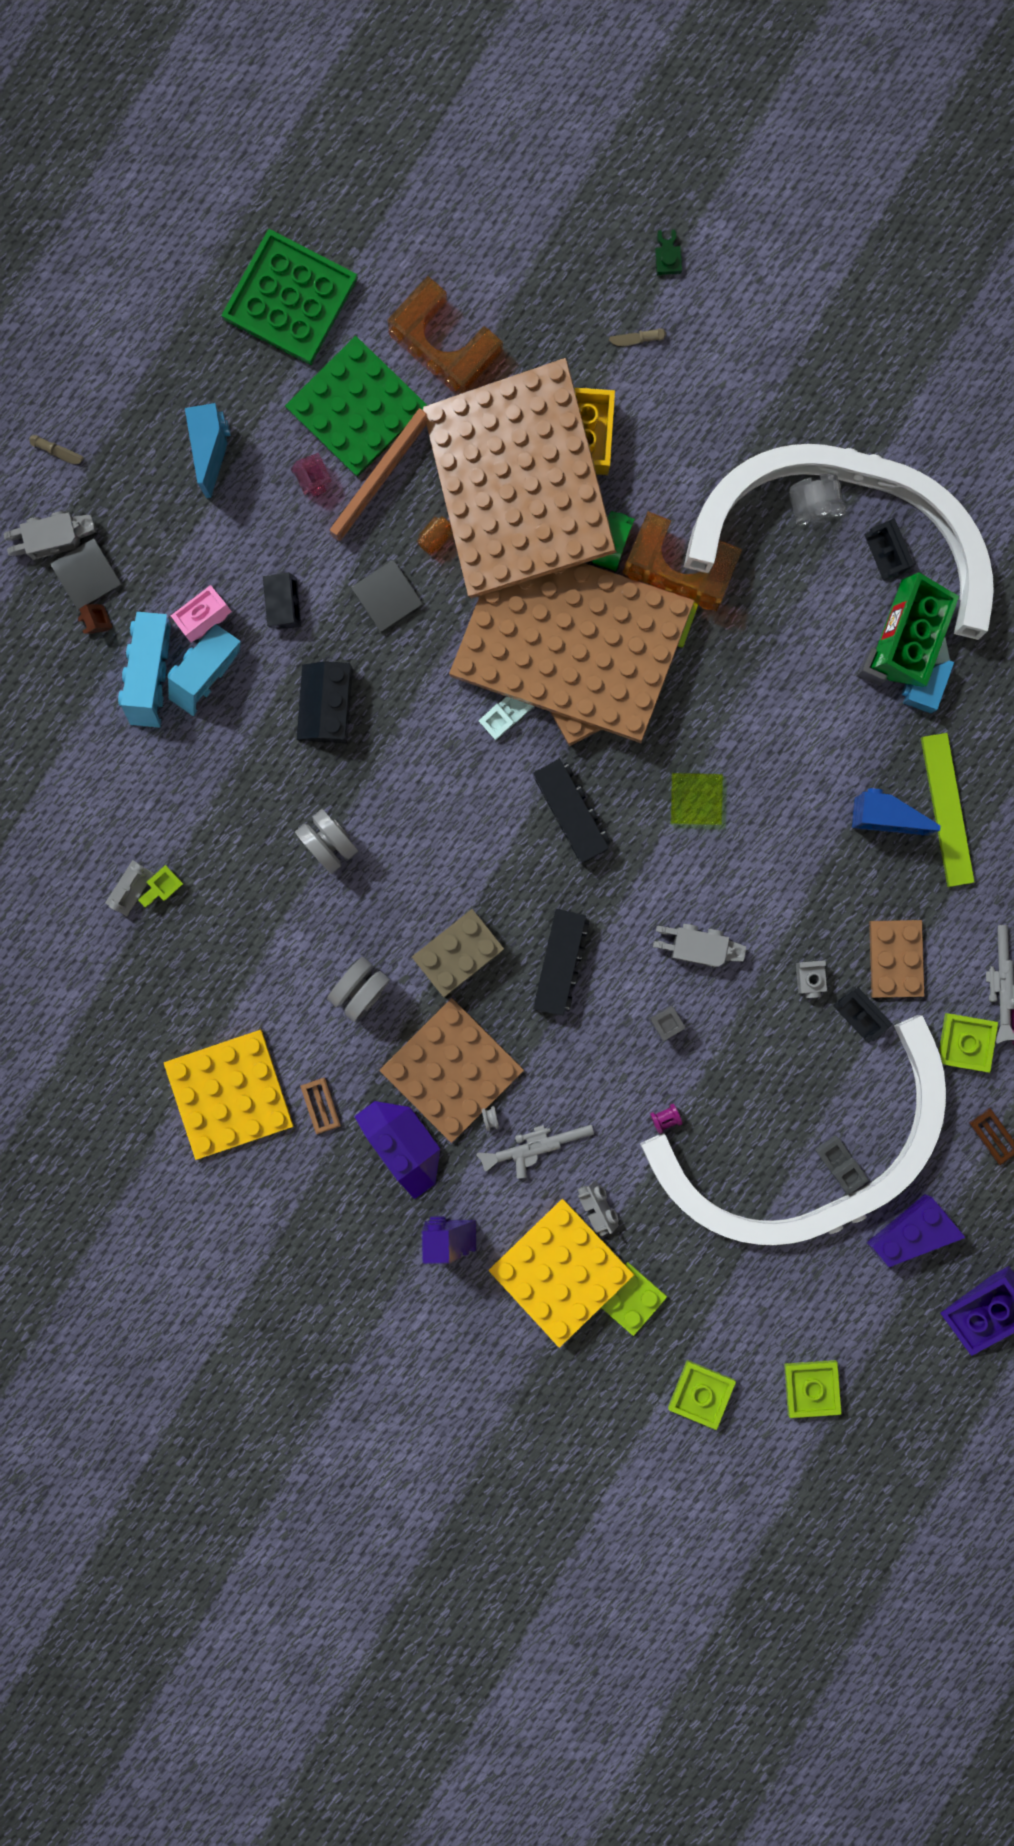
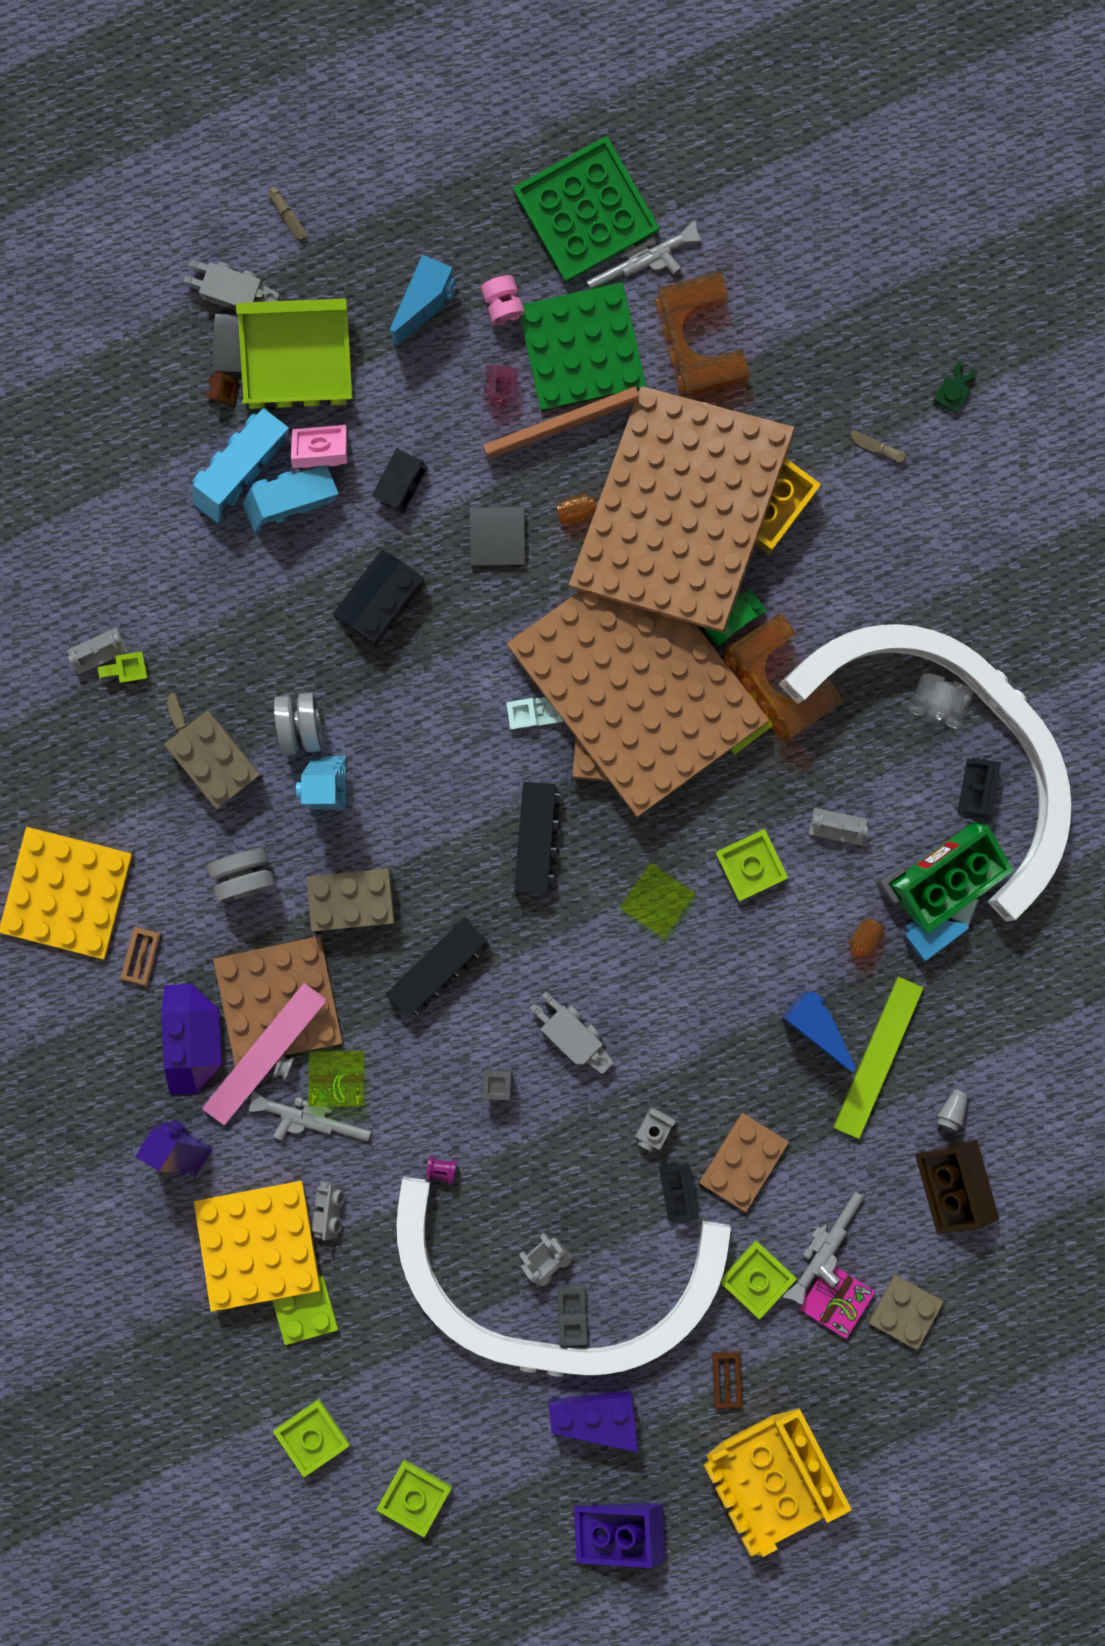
camera: 40 degrees right, 0 degrees up
(133, 552) = (294, 352): none -> lime panel
(230, 901) = (176, 712): none -> dark tan piece
(267, 406) = (501, 296): none -> bright pink wheel
(276, 913) = (212, 759): none -> dark tan brick
(368, 301) = (655, 258): none -> light grey piece
(378, 875) = (323, 783): none -> medium azure wedge
(468, 1118) = (264, 1053): none -> bright pink tile
(537, 1101) = (336, 1079): none -> clear neon green tile
(752, 724) = (751, 865): none -> lime plate
(793, 1135) = (545, 1260): none -> light grey piece
(800, 651) = (838, 826): none -> light grey hinge
(878, 723) = (866, 938): none -> clear orange brick

